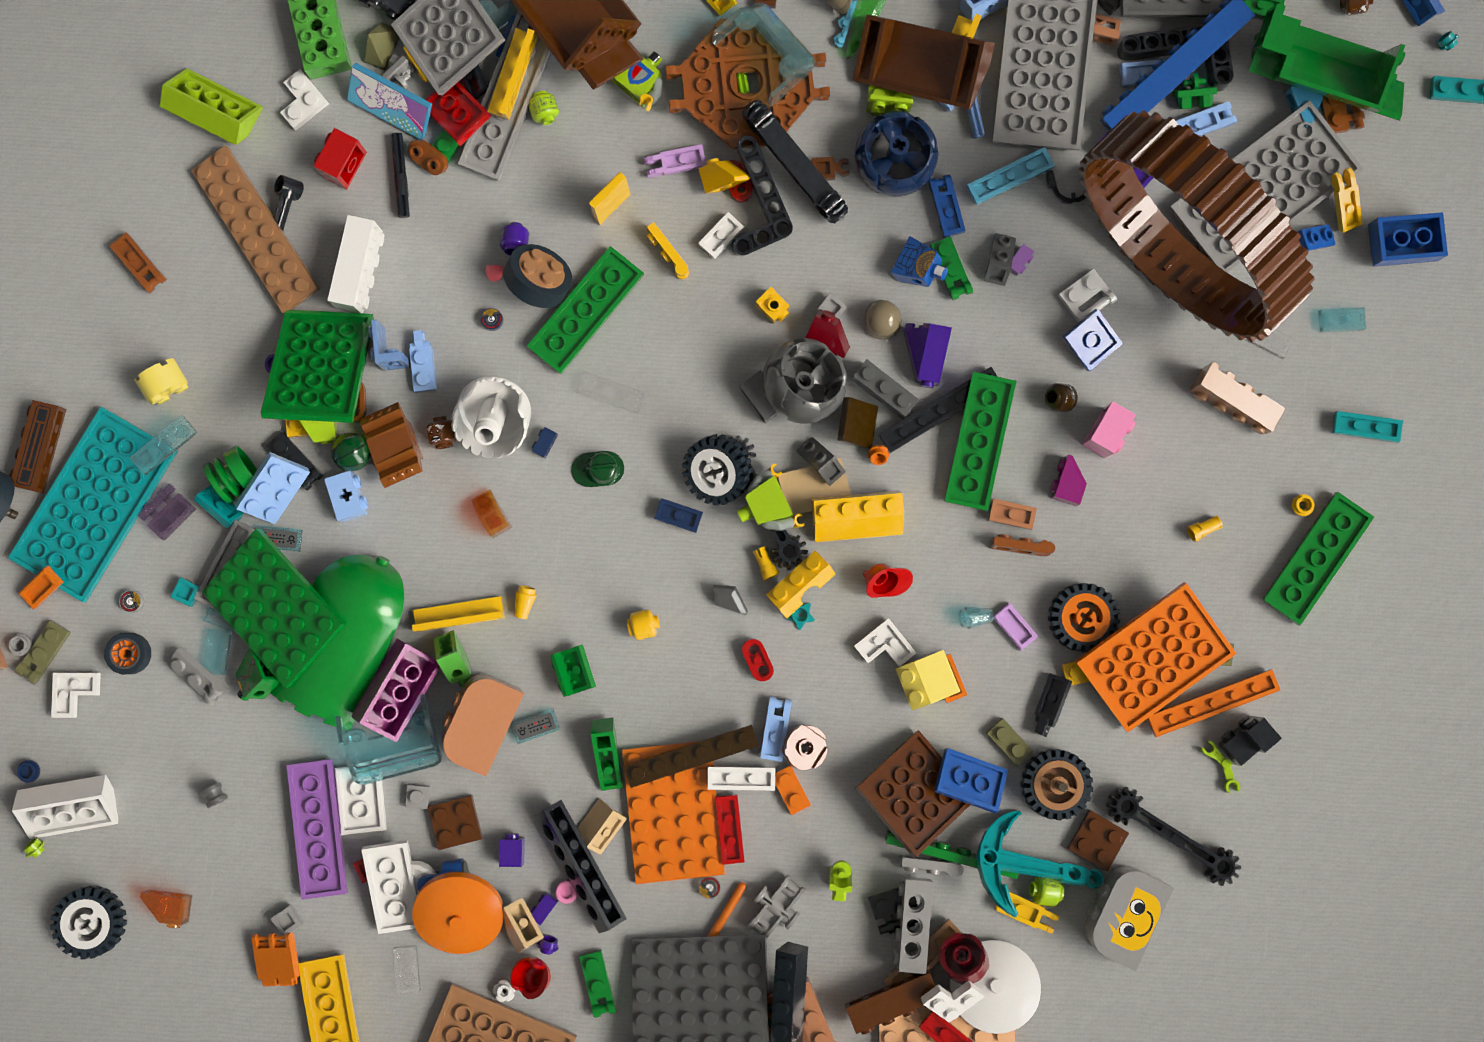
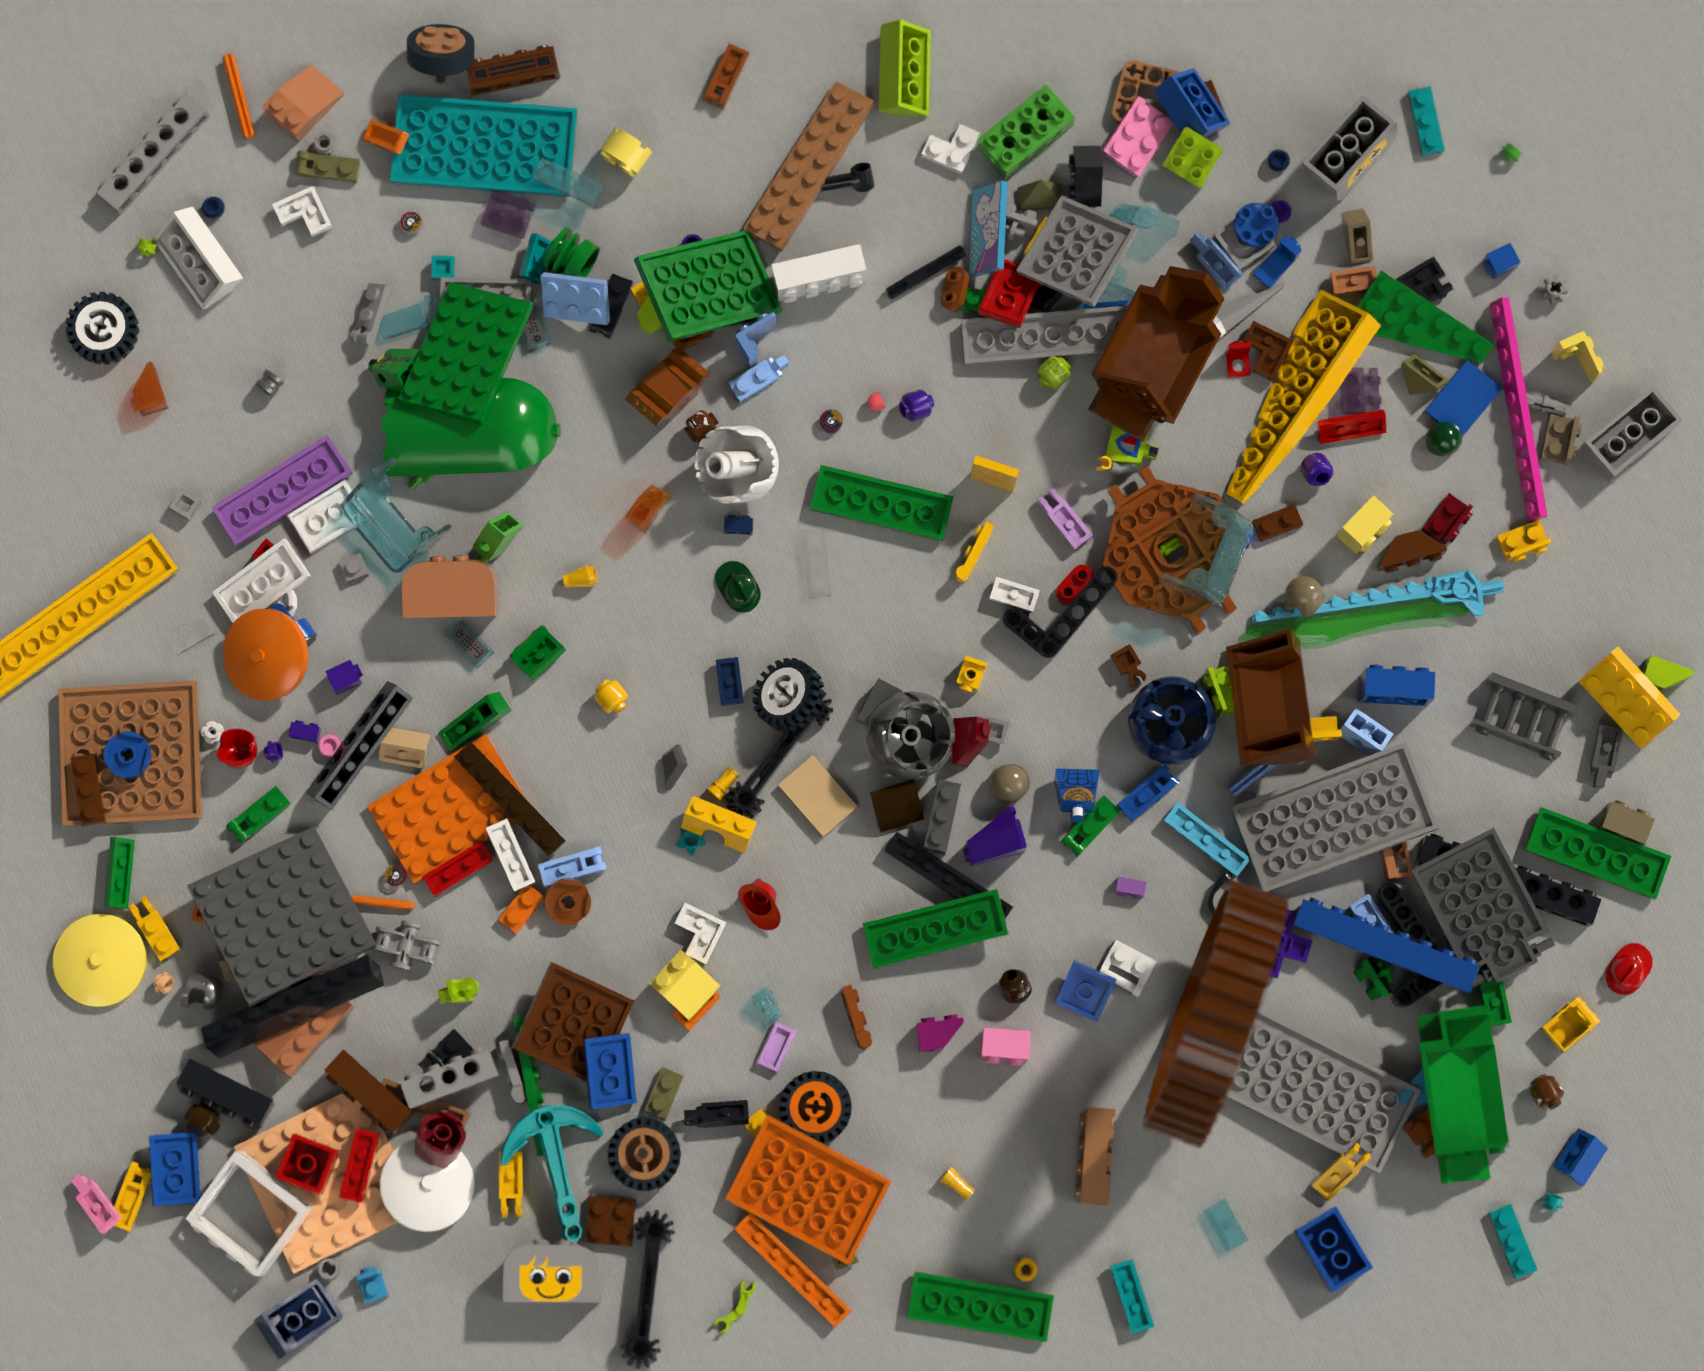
camera: 60 degrees right, 5 degrees down
(116, 651) = (358, 232): wheel -> none
(275, 959) = (146, 511): orange plate -> none
(338, 488) = (606, 358): light blue brick -> none
(339, 158) = (911, 210): red brick -> none
(350, 452) = (643, 352): dark green piece -> none
(396, 690) = (443, 500): magenta brick -> none
(455, 822) = (346, 613): reddish brown plate -> none
(458, 614) = (540, 523): yellow fence -> none
(512, 73) = (1069, 328): yellow fence -> none
(521, 925) = (280, 717): tan slope -> none
(537, 276) = (889, 443): black wheel -> none
(721, 175) = (1069, 566): yellow slope -> none
(756, 660) = (628, 819): red plate -> none
(768, 503) = (779, 756): lime torso -> none
(794, 161) = (1115, 628): black arm -> none
(821, 460) = (844, 789): dark grey bracket -> none
(857, 516) = (808, 847): yellow slope -> none
(878, 455) = (877, 840): orange plate -> none
(953, 1004) = (390, 1144): white plate -> none
(1000, 259) = (1122, 867): dark grey bracket -> none
(1012, 514) = (881, 993): nougat plate -> none
(1046, 891) = (538, 1192): lime head -> none
(1209, 120) = (1352, 1001): light blue plate -> none
(1249, 738) = (771, 1316): black brick -> none
(1316, 237) = (1287, 1156): blue bracket -> none

